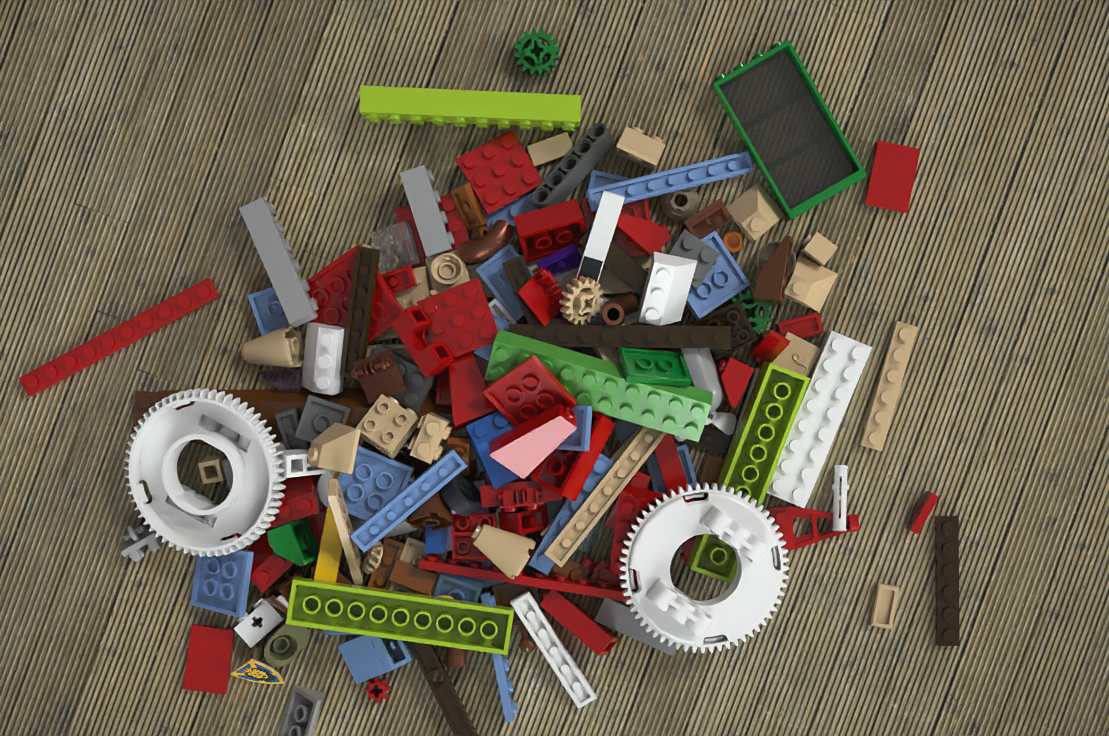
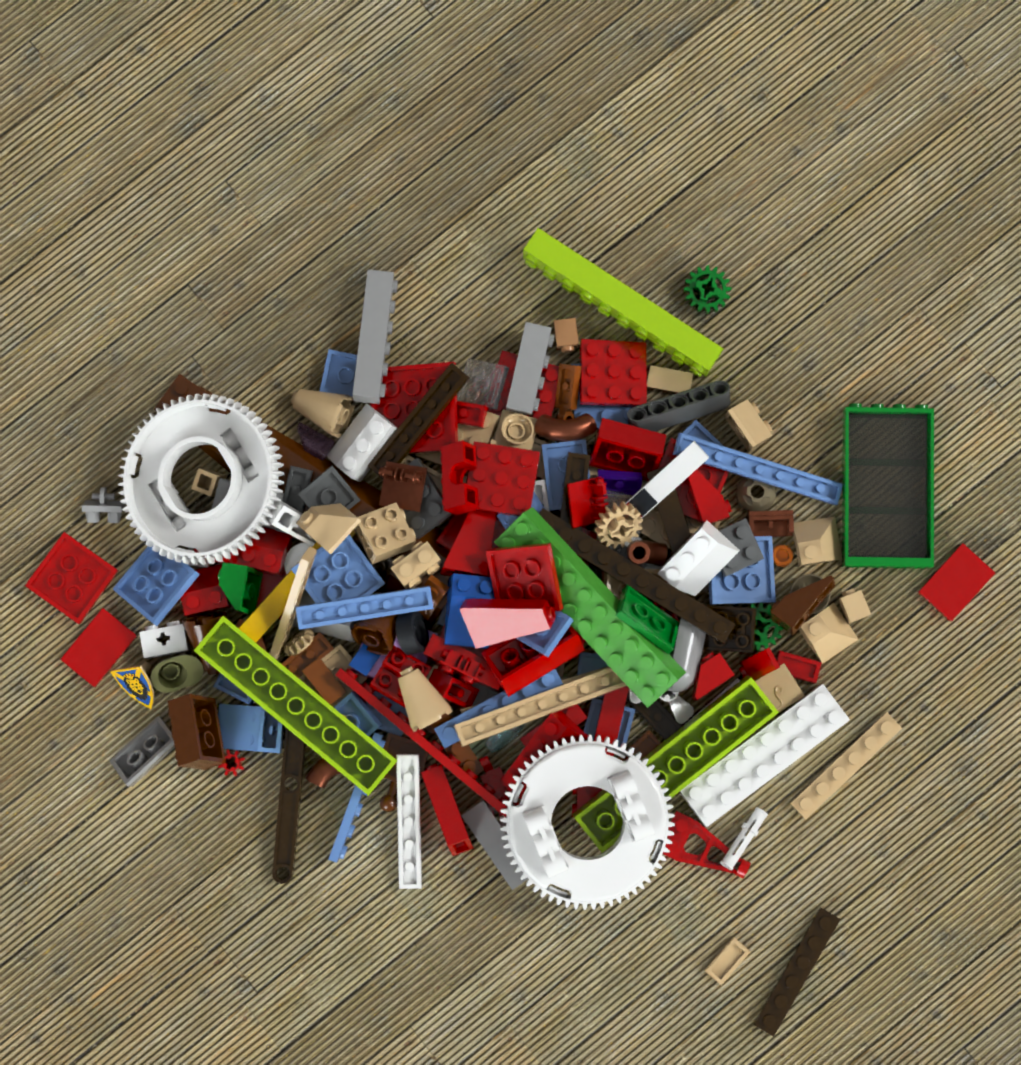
camera: 30 degrees right, 5 degrees down
(119, 337) = (193, 319): red plate -> none
(150, 615) = (71, 578): none -> red plate
(331, 684) = (196, 732): none -> reddish brown brick
(440, 163) = (566, 335): none -> medium nougat brick
(922, 512) = (810, 895): red tile -> none

